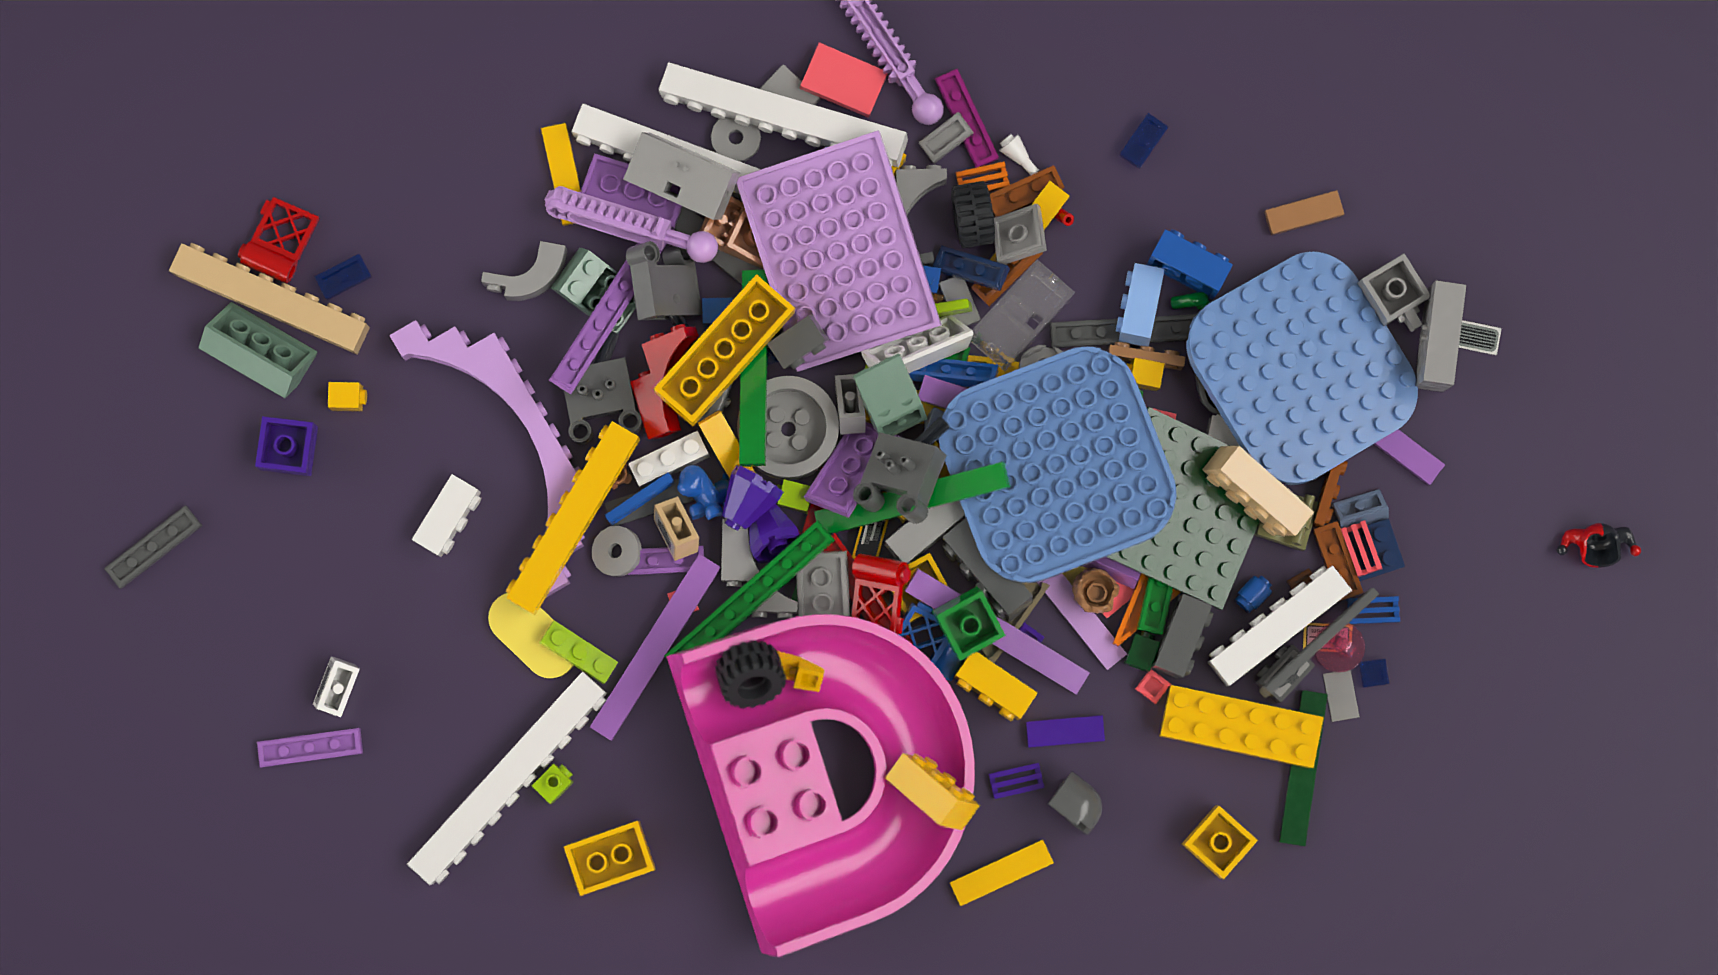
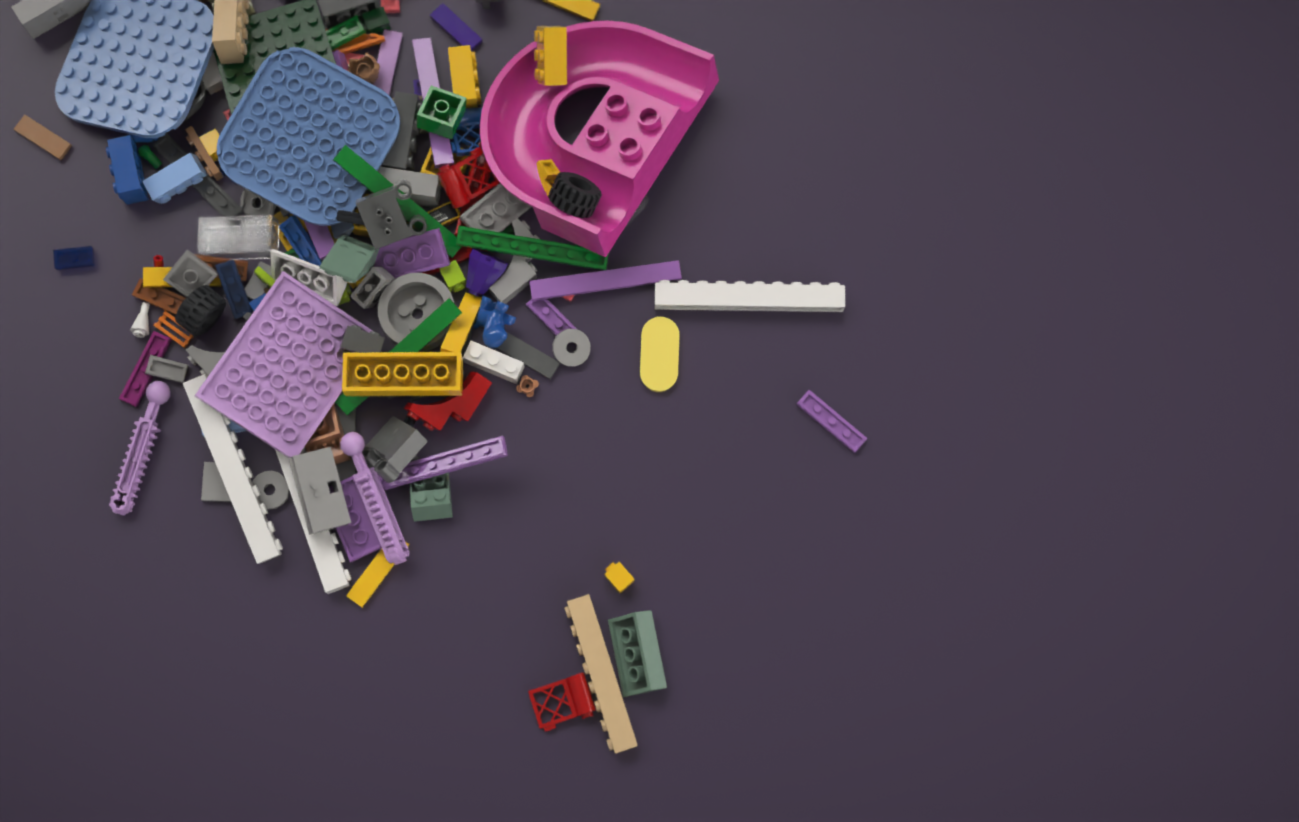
camera: 135 degrees left, 5 degrees down
(153, 547) = (802, 611): dark grey tile -> none
(286, 446) = (677, 583): dark purple brick -> none
(336, 686) = (785, 433): white brick -> none
(343, 276) = (550, 643): clear blue plate -> none
(447, 516) = (635, 458): white brick -> none
(492, 366) = (563, 403): lavender arch -> none
(534, 282) = (454, 528): light grey arch -> none
(553, 783) = (729, 270): lime brick -> none
(573, 517) = (574, 380): yellow brick -> none
(578, 652) = (646, 318): lime plate -> none
(602, 392) = (485, 426): dark grey piece -> none
(609, 858) = (742, 203): yellow brick -> none
(640, 499) = (531, 357): blue tile -> none
(676, 528) = (529, 322): tan brick -> none
(713, 308) = (383, 408): blue brick -> none
(748, 498) = (477, 292): dark purple cone -> none
(843, 80) = (181, 456): coral tile -> none
(1037, 775) = (493, 22): dark purple tile -> none
(1395, 292) = (48, 48): light grey hinge -> none

